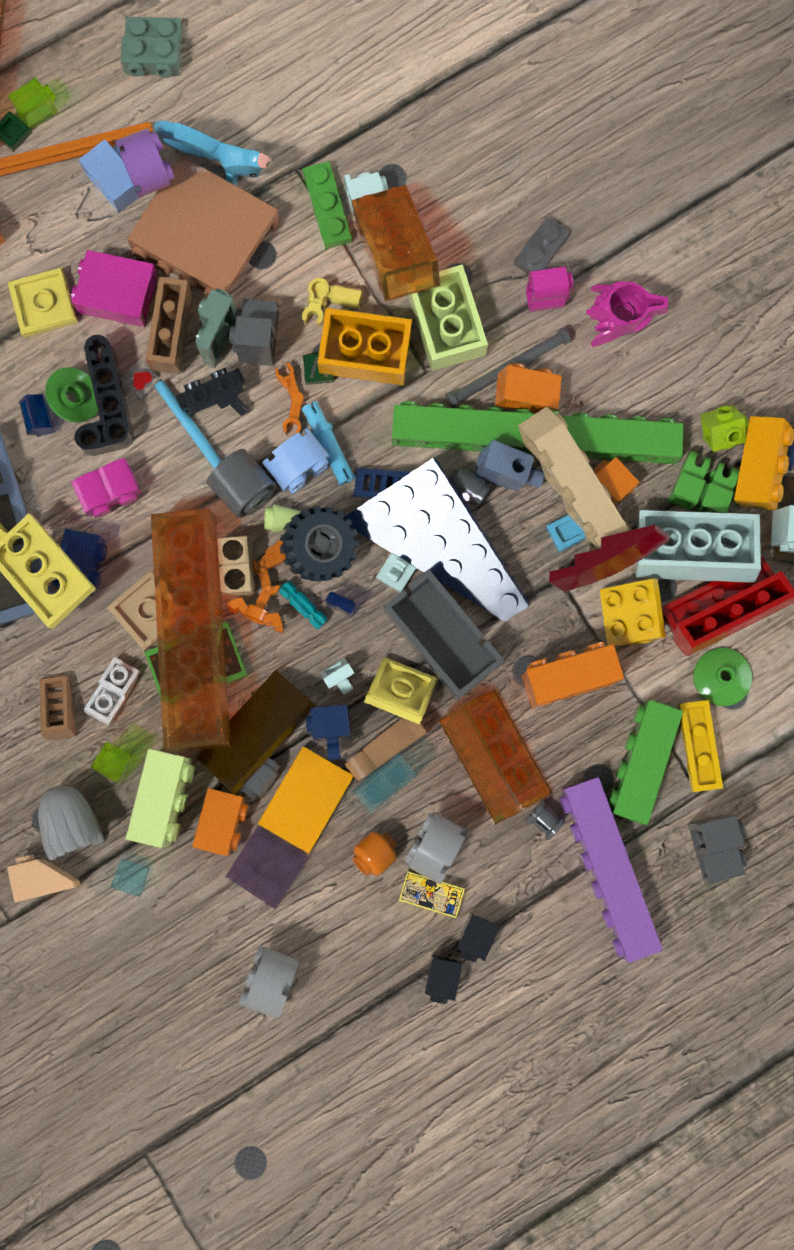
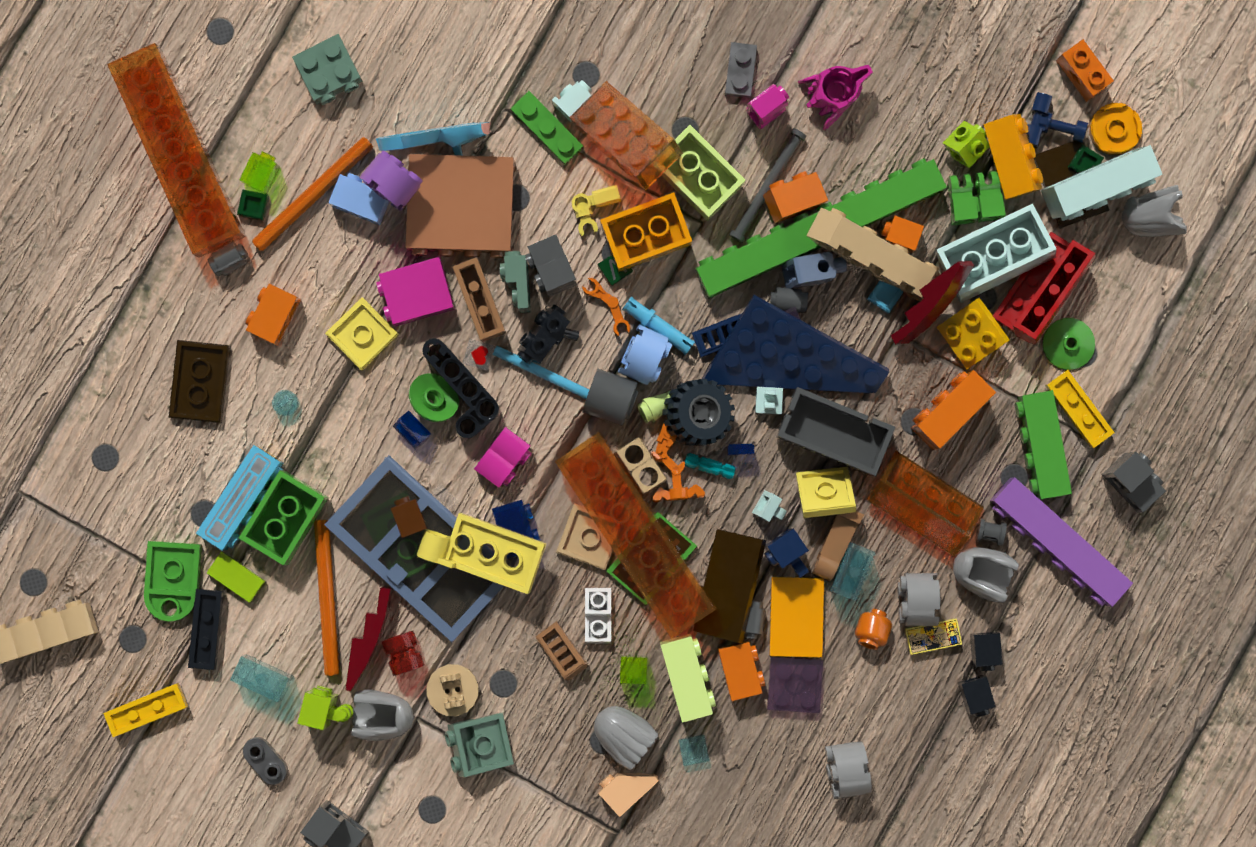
camera: 25 degrees left, 5 degrees up
(517, 857) = (985, 572): none -> light grey hair

